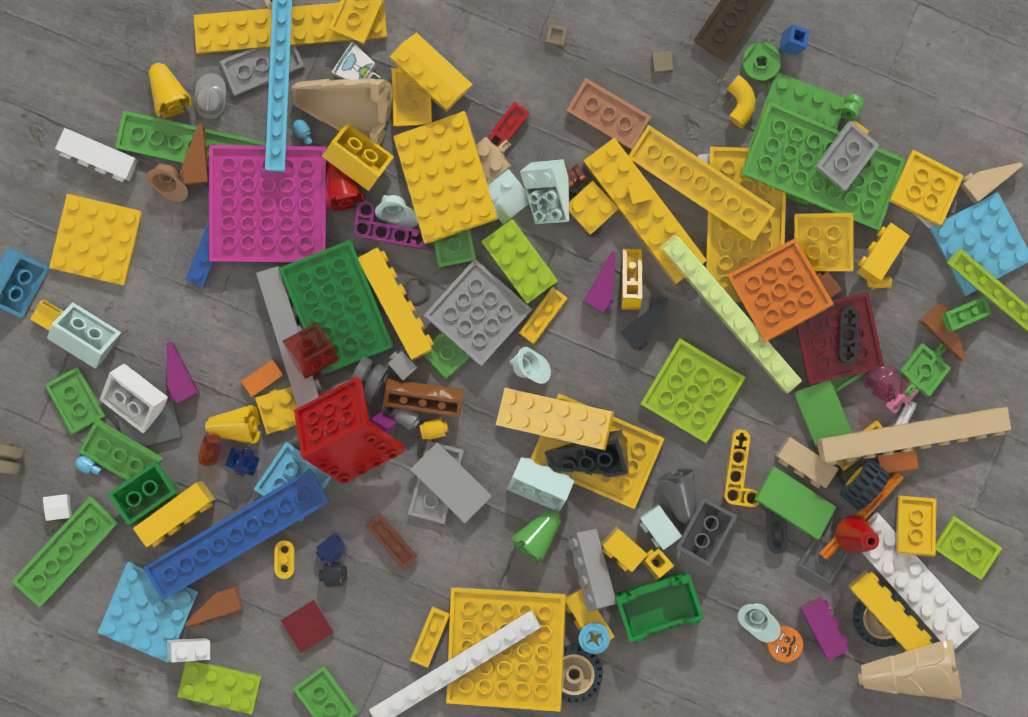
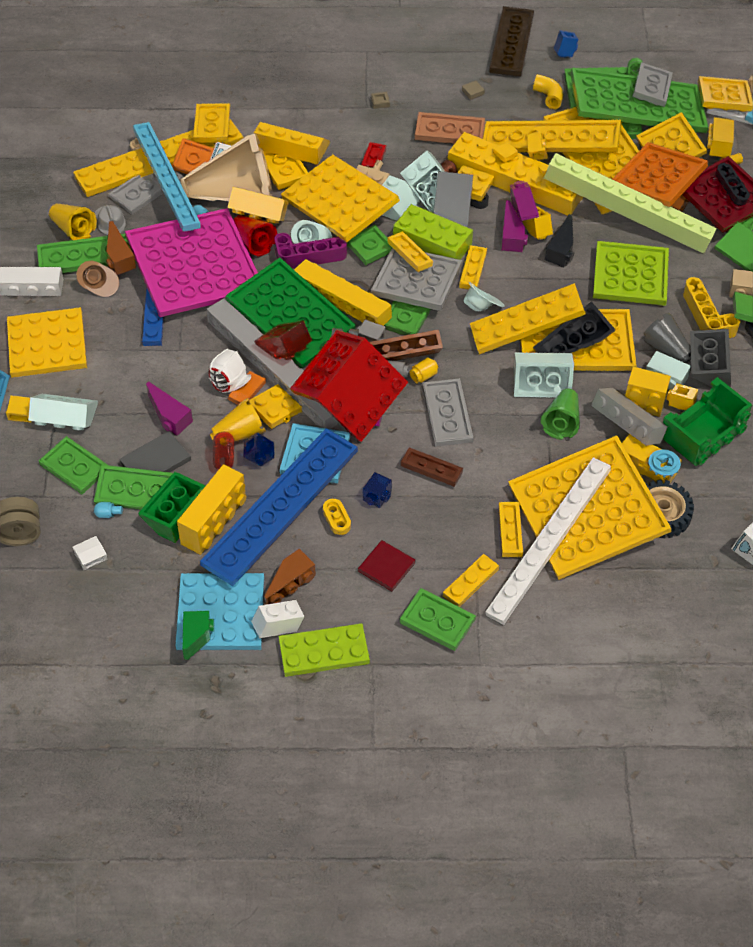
camera: 25 degrees left, 35 degrees down
(65, 551) = (112, 588): bright green plate -> none
(115, 634) = (196, 631): none -> green slope
(133, 397) = (130, 437): white slope -> none
(248, 360) = (230, 368): none -> white piece
(321, 51) = (190, 156): none -> orange tile
(333, 574) = (390, 509): black head -> none
(372, 671) = (470, 580): none -> yellow plate
(451, 482) = (462, 401): light grey tile -> none
(483, 282) = (410, 251): none -> yellow plate
(557, 229) = (453, 196): none -> tile
(626, 266) = (523, 200): none -> magenta slope
(676, 196) = (537, 146): none -> yellow brick
(772, 62) = (557, 68): bright green plate -> none

